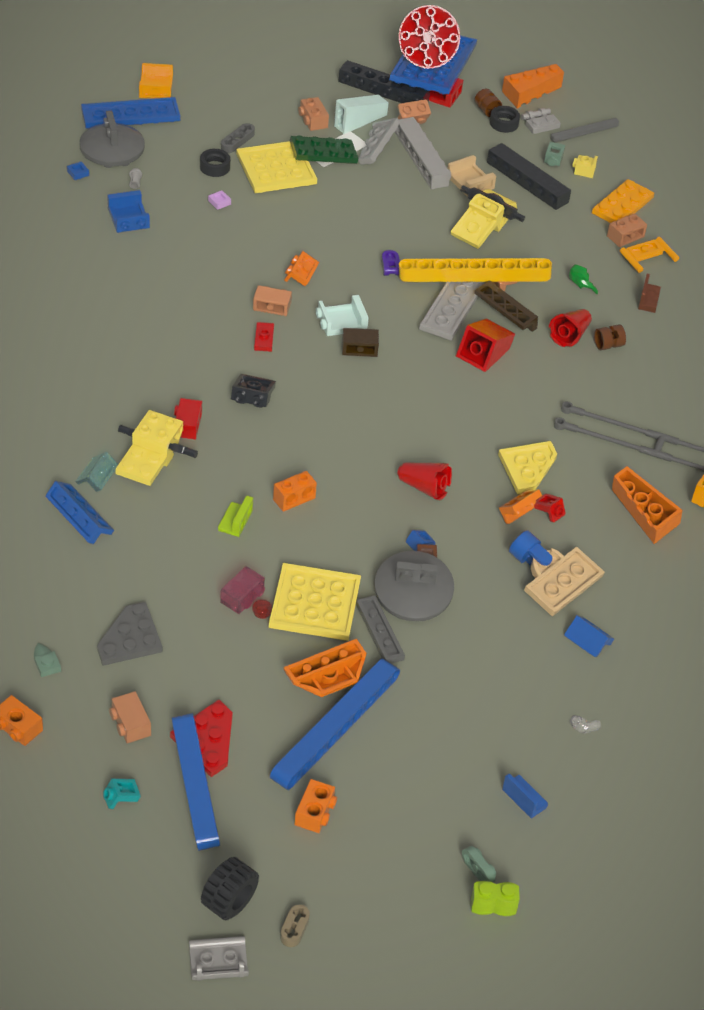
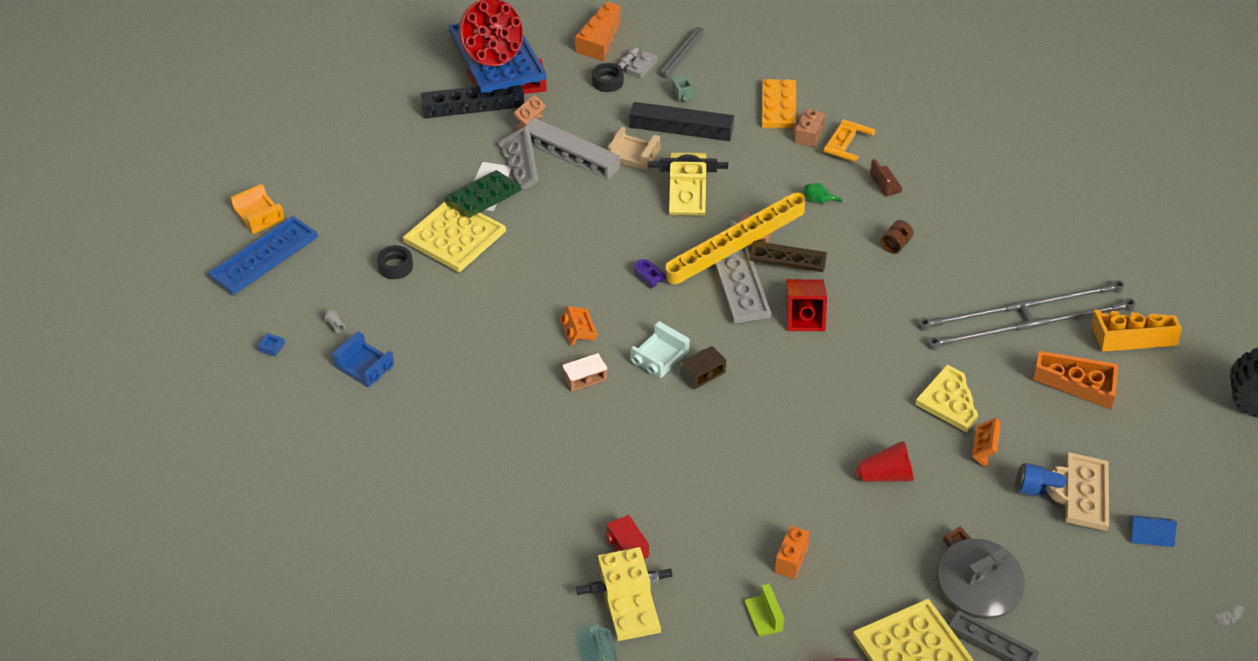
camera: 30 degrees left, 0 degrees up
(112, 143) = (277, 297): dark grey bracket -> none
(219, 200) = (436, 298): lavender plate -> none
(244, 132) = (393, 230): dark grey beam -> none
(252, 390) = (657, 474): black plate -> none
(264, 336) = (609, 413): red plate -> none
(314, 113) = (438, 162): nougat brick -> none
(359, 111) = (478, 139): light aqua slope -> none
(419, 537) = (935, 530): blue slope -> none
(487, 101) = (580, 68): reddish brown wheel -> none
(552, 505) = (1010, 426): red bracket -> none
(569, 327) = (859, 247): red cone -> none
(585, 166) = (718, 85): light yellow brick -> none

